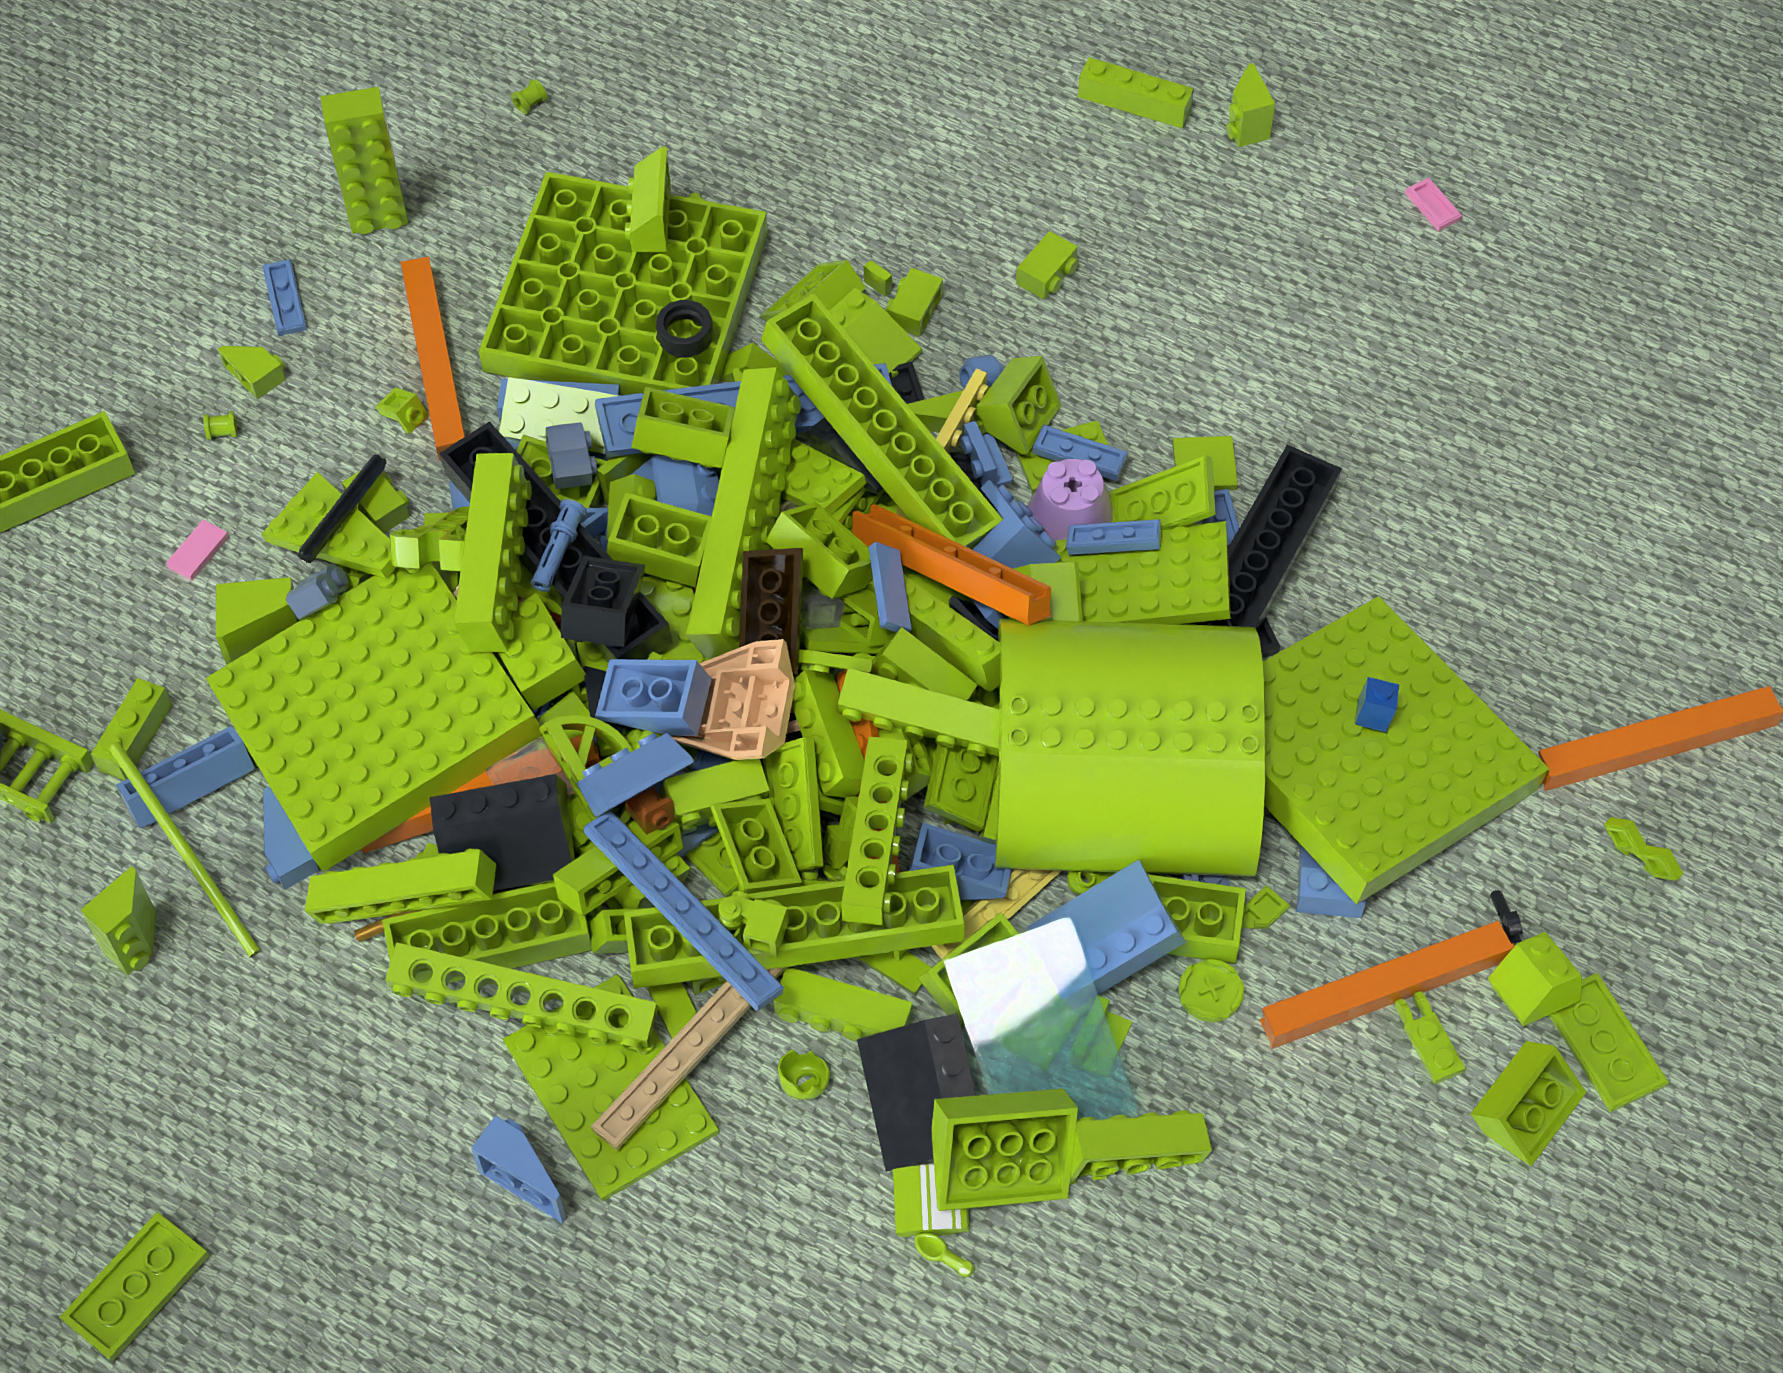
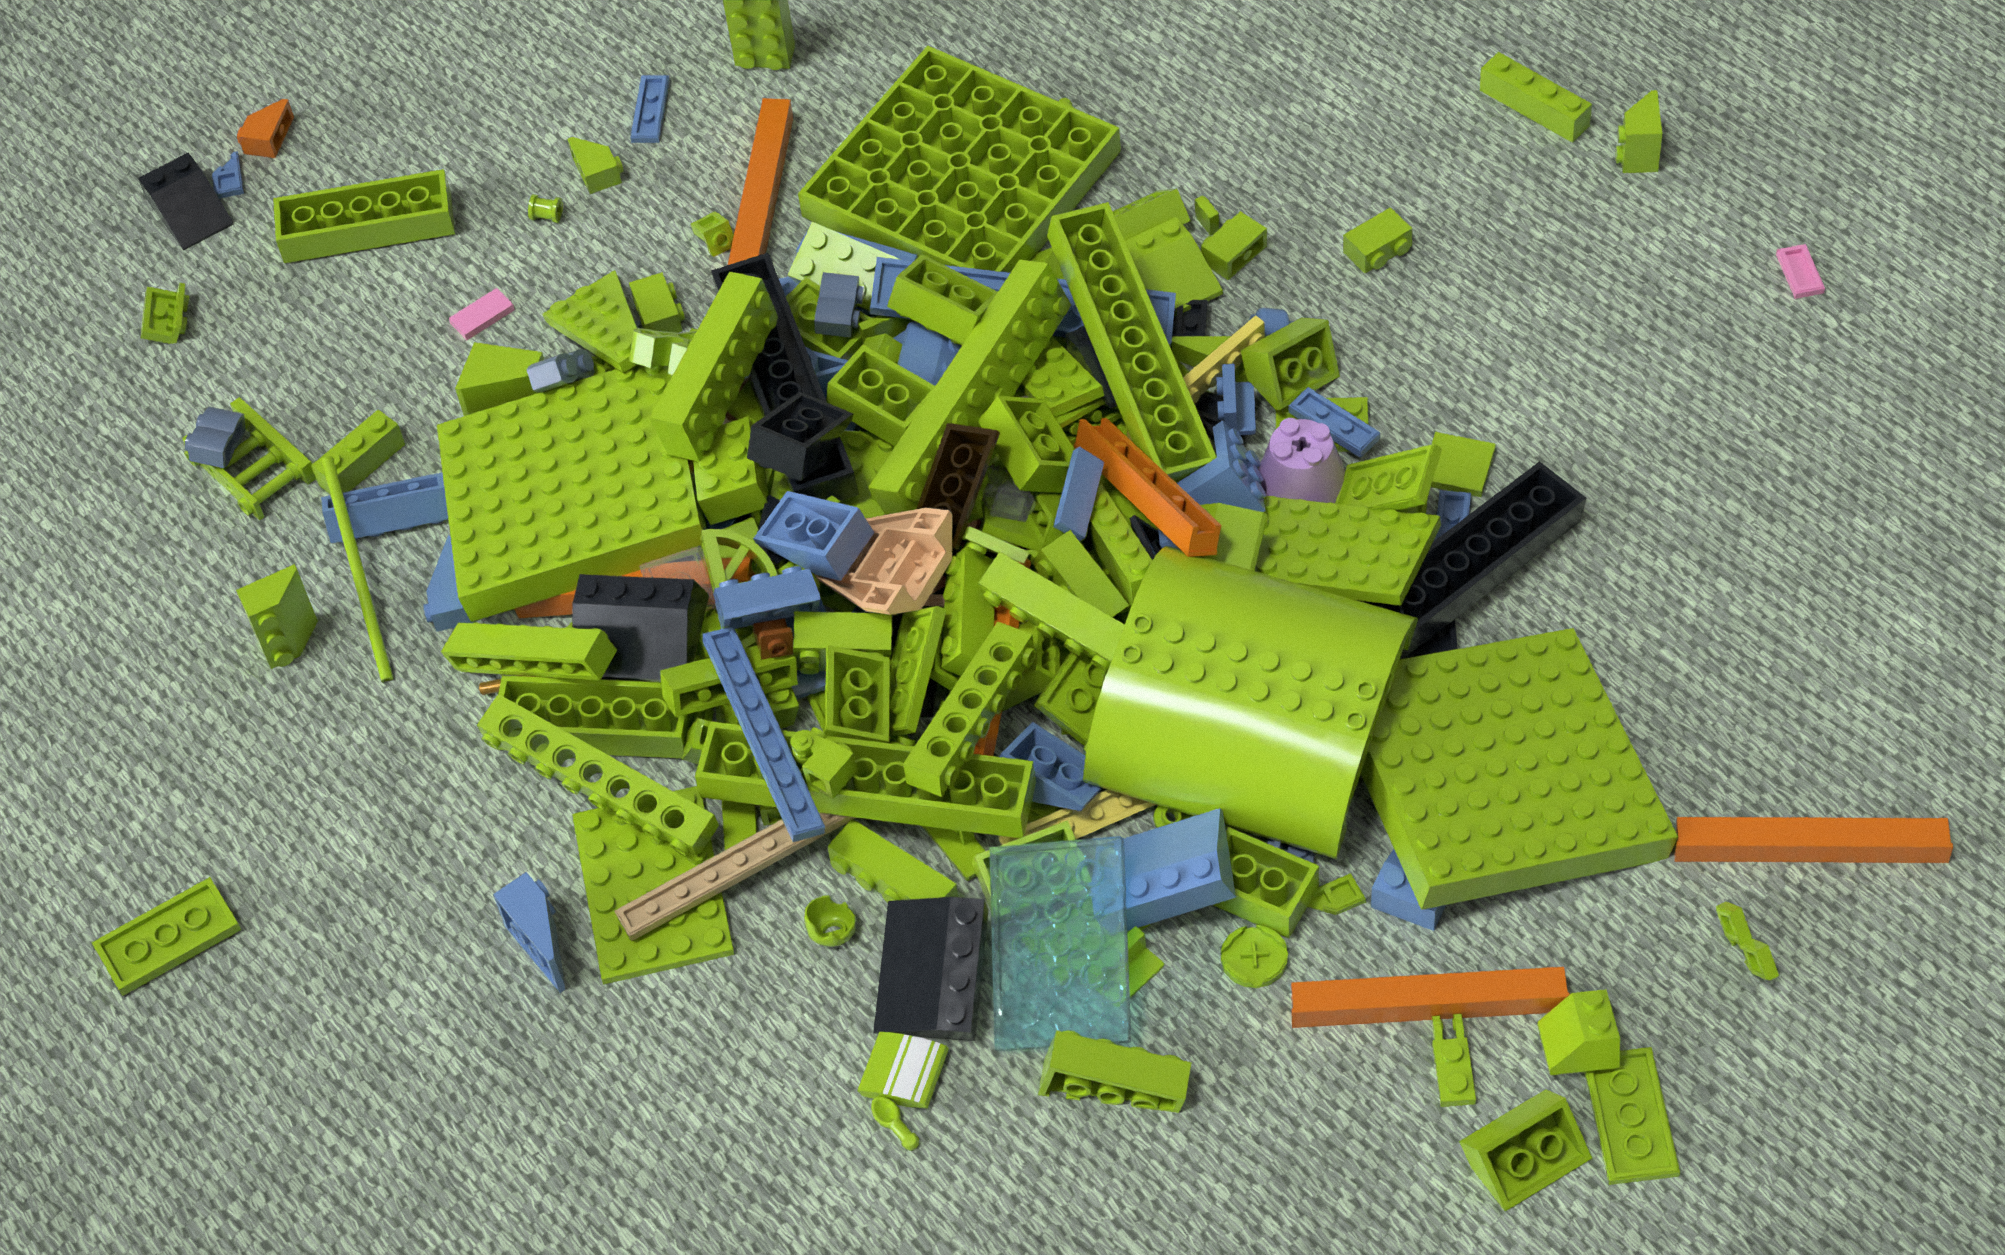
camera: 25 degrees right, 5 degrees down
(342, 508) = (613, 303): black axle -> none
(562, 533) = (788, 366): medium blue pin -> none
(649, 203) = (1008, 94): lime slope -> none
(684, 346) = (993, 232): black tyre -> none
(1003, 1148) = (980, 1037): lime slope -> none
(1114, 537) = (1324, 504): medium blue tile -> none
(1376, 704) = (1512, 722): blue brick -> none
(1510, 920) = (1579, 967): black bar -> none

